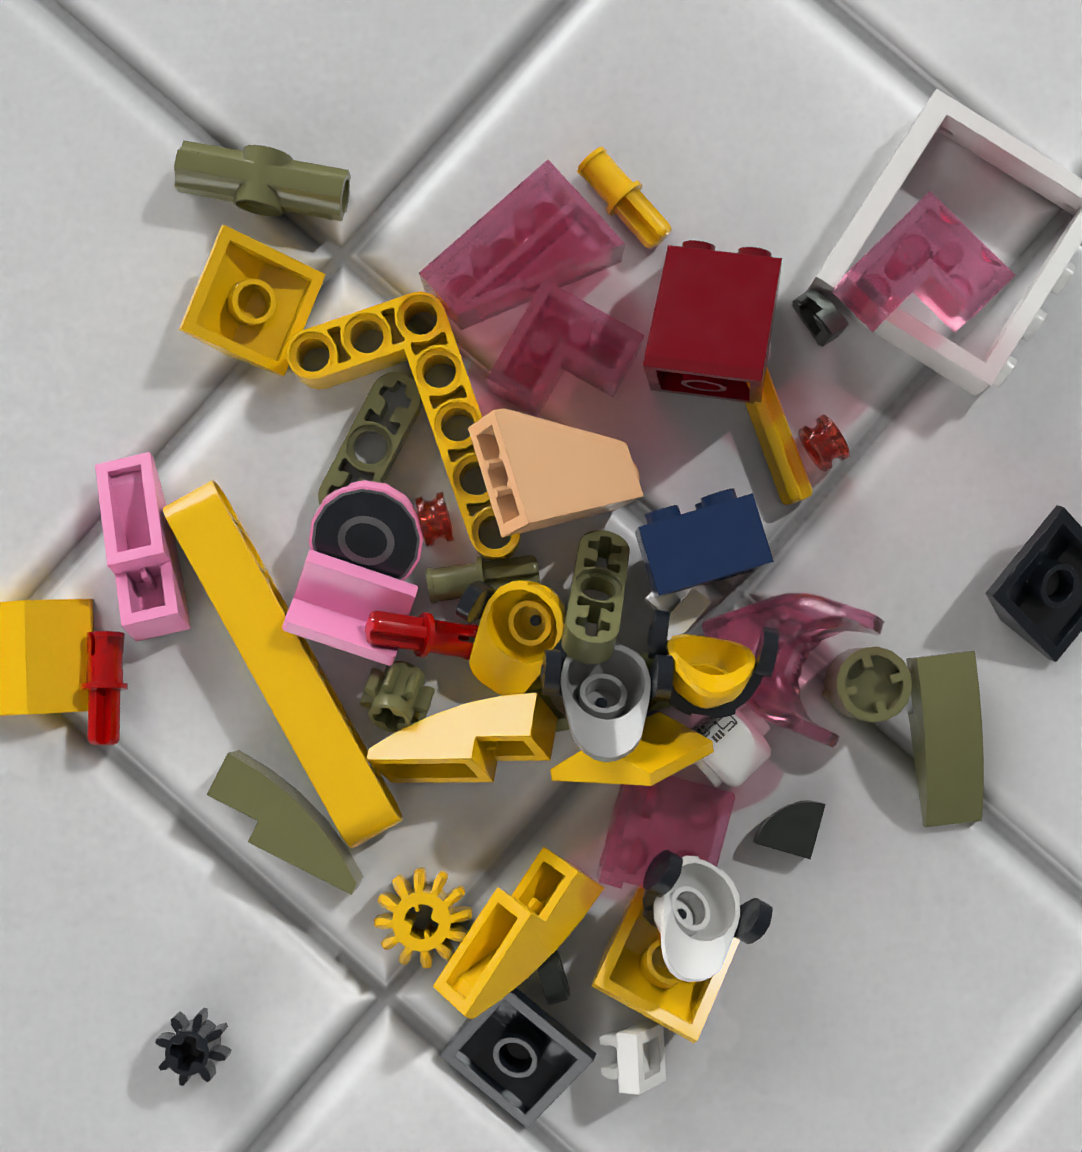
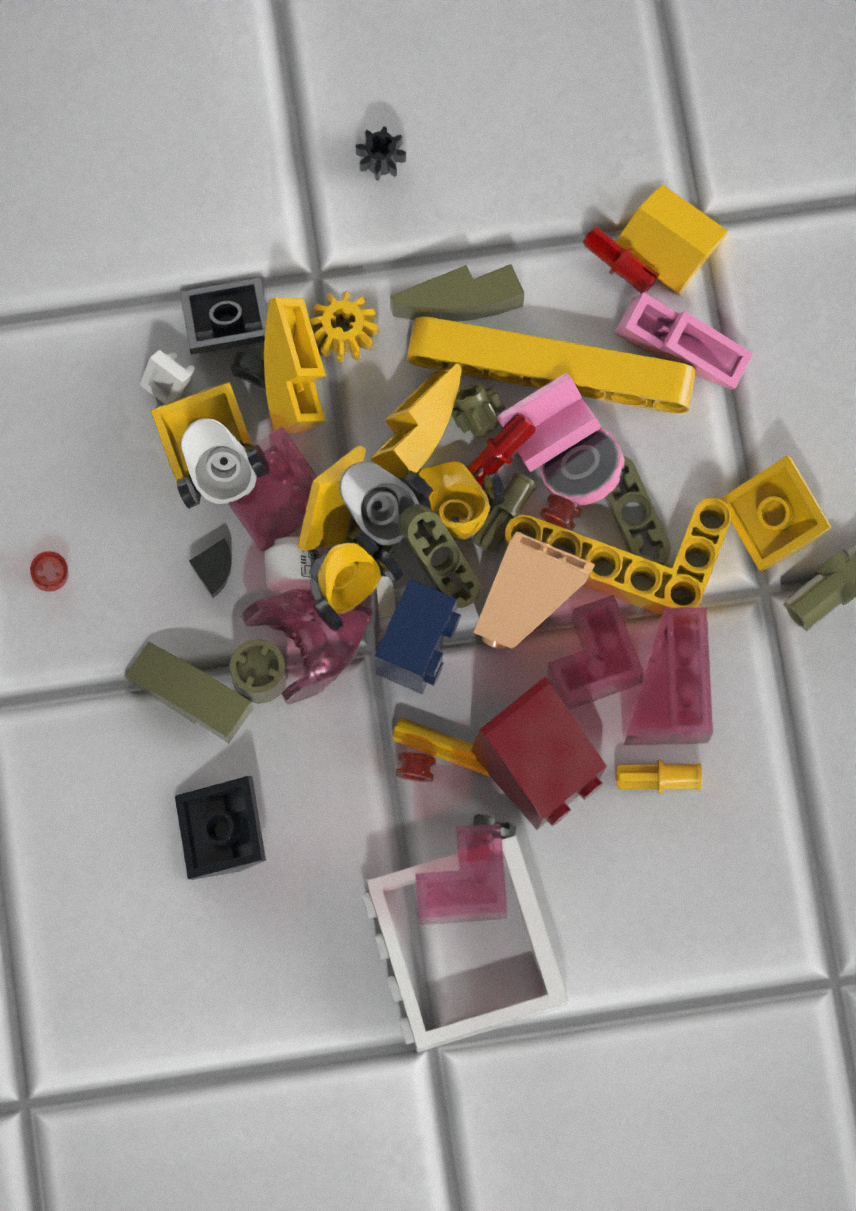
camera: 130 degrees right, 10 degrees down
(958, 989) = (41, 581): none -> clear red bush

